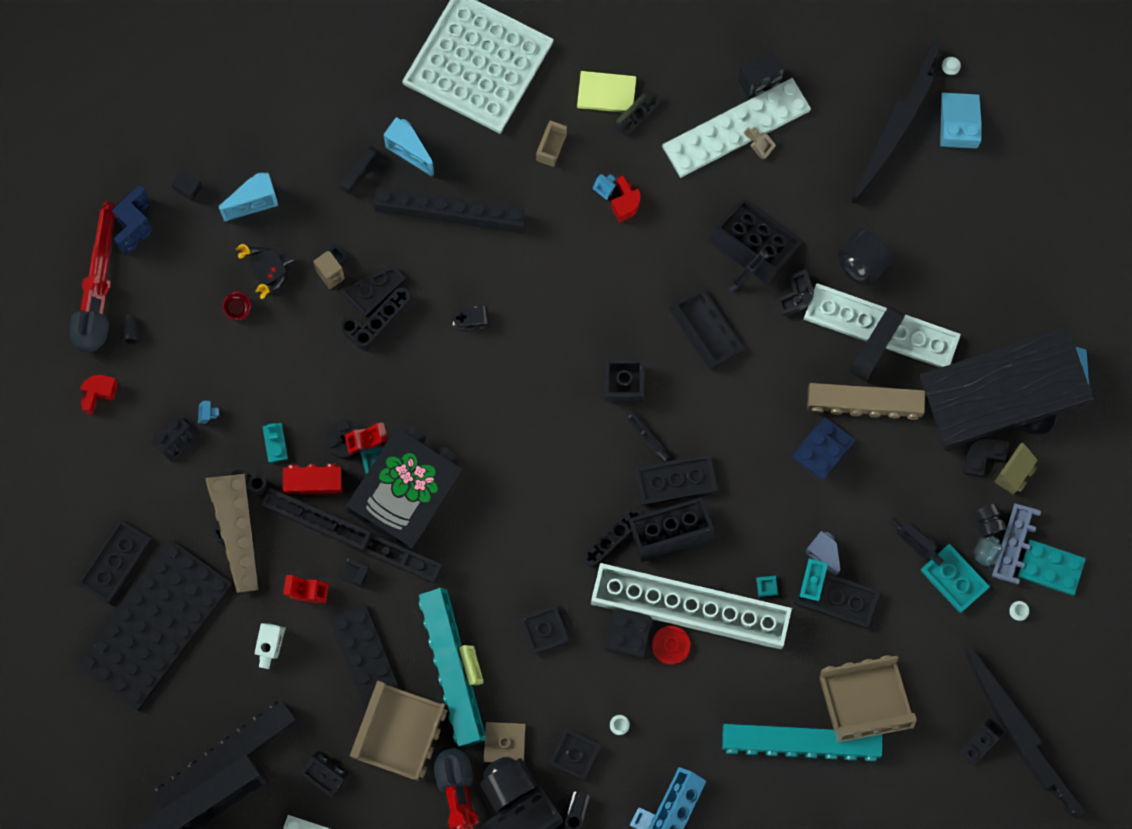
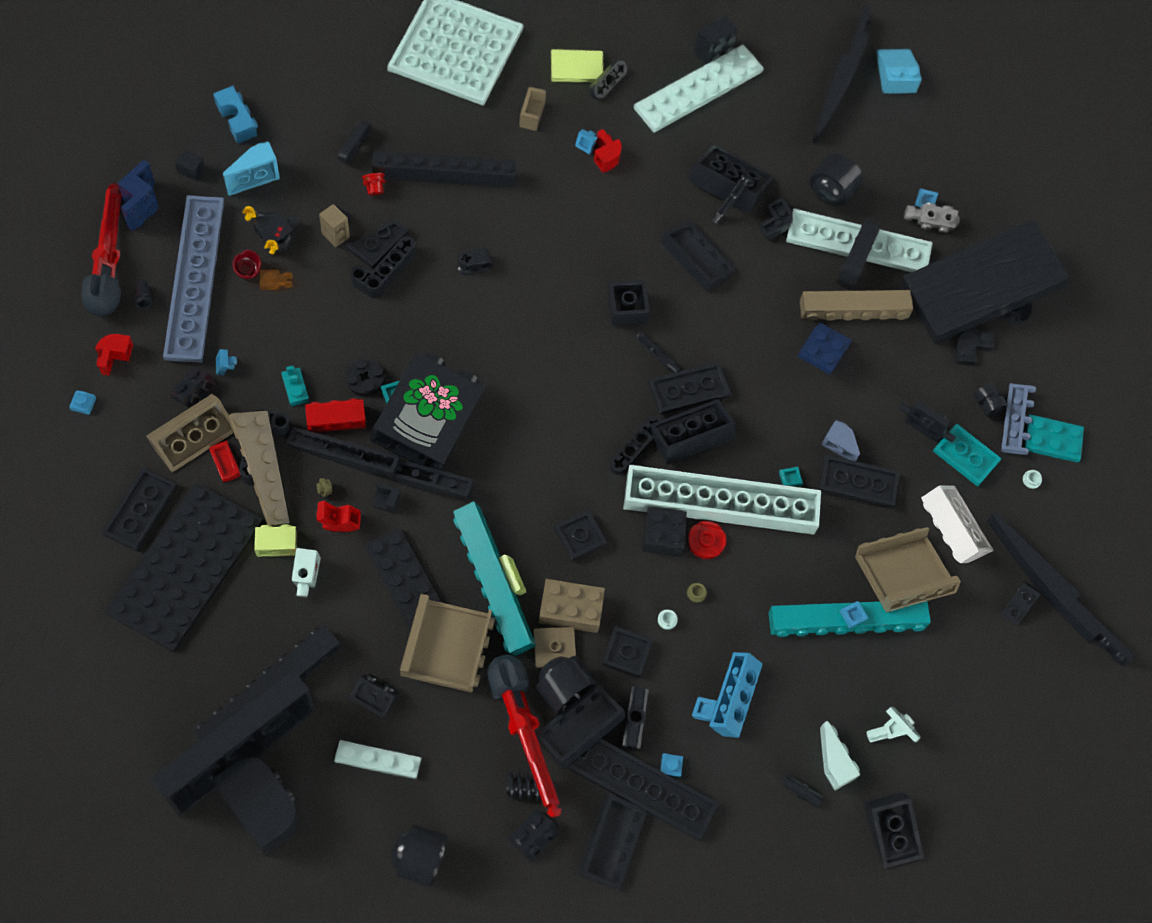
camera: 15 degrees left, 10 degrees down
(65, 443) = (82, 402): none -> dark azure tile
(168, 486) = (191, 432): none -> dark tan slope
(183, 315) = (194, 279): none -> sand blue plate
(200, 518) = (225, 461): none -> red tile
(233, 115) = (230, 103): none -> dark azure arch
(243, 608) = (275, 540): none -> yellowish green brick
(261, 322) = (272, 279): none -> clear orange plate
(295, 556) = (324, 487): none -> olive plate
(366, 439) = (386, 372): red brick -> none
(375, 221) = (374, 183): none -> red piece
(404, 142) = (399, 117): medium azure slope -> none
(525, 703) = (571, 605): none -> dark tan brick
(652, 700) = (696, 592): none -> olive plate
(761, 142) = (724, 96): dark tan plate -> none
(803, 742) = (853, 614): none -> dark azure plate
(813, 579) = (837, 463): teal plate -> none
(930, 652) = (956, 524): none -> white slope
(951, 65) = (881, 28): light aqua plate -> none
(963, 282) = (925, 196): none -> dark azure plate
(972, 304) = (938, 219): none -> light grey brick
(988, 551) = (993, 427): clear light blue head -> none
(1017, 468) = (1006, 352): olive slope -> none

